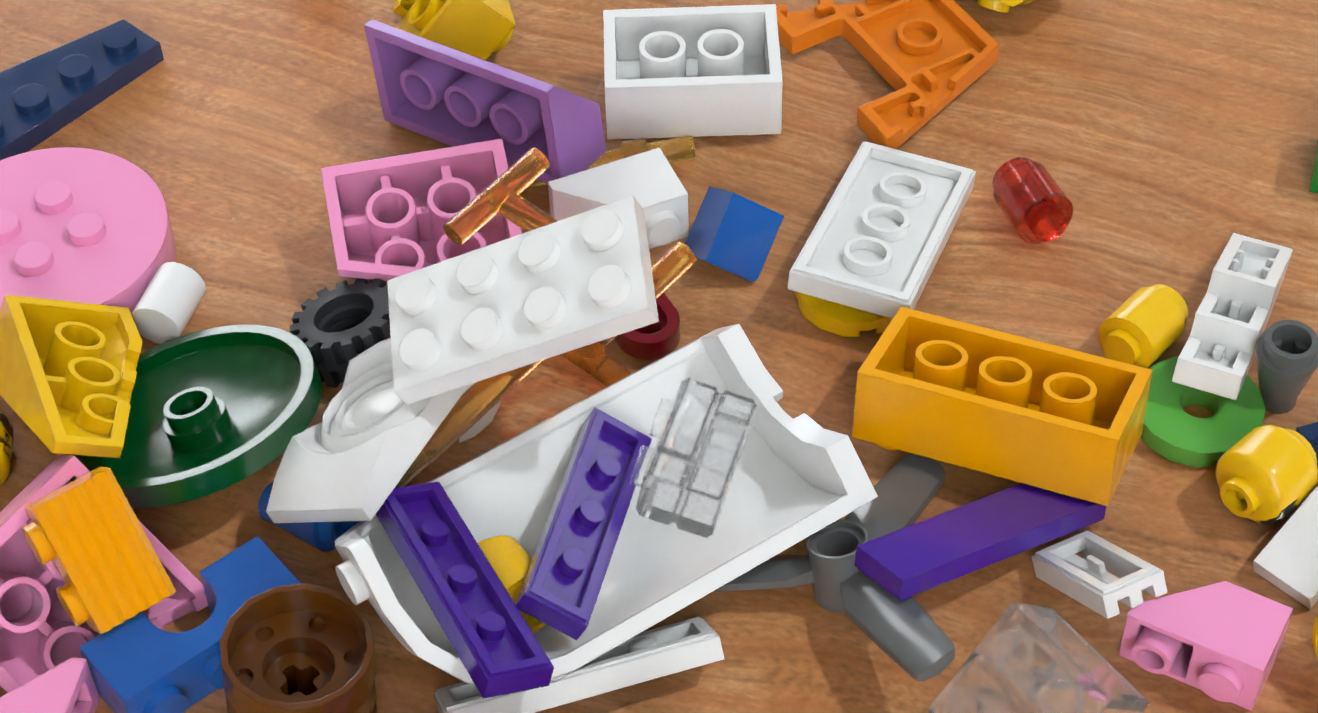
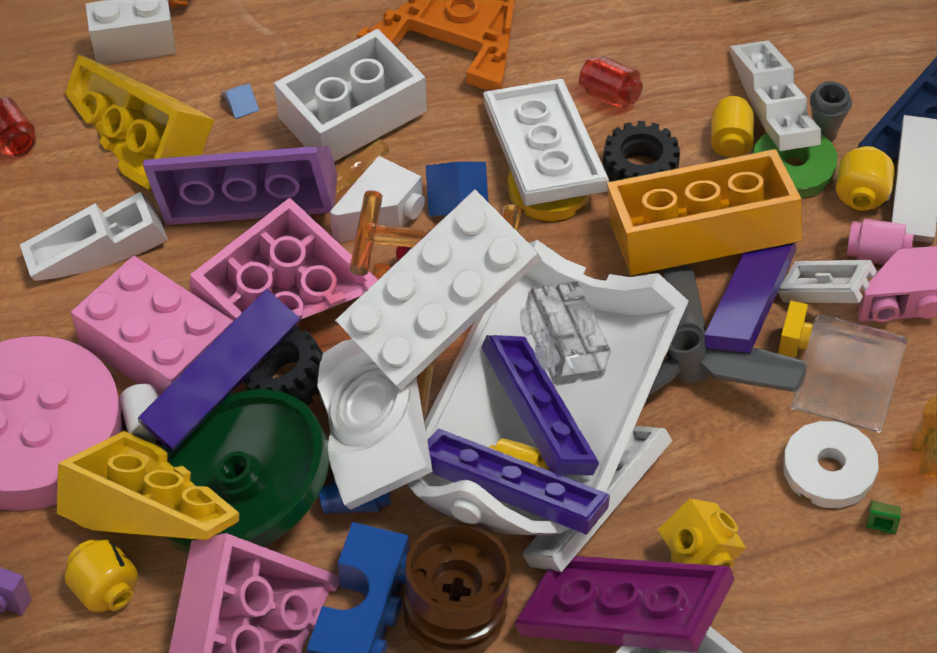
camera: 35 degrees left, 5 degrees up
(98, 551) = (279, 583): light orange brick -> none
(255, 222) = (146, 324): none -> bright pink brick
(265, 289) = (219, 370): none -> dark purple tile
(291, 95) = (94, 239): none -> white slope
(582, 26) = (241, 100): none -> light blue piece
(990, 605) = (795, 330): none -> yellow plate
(993, 284) = (639, 141): none -> black tyre
(1215, 554) = (877, 240): none -> bright pink brick

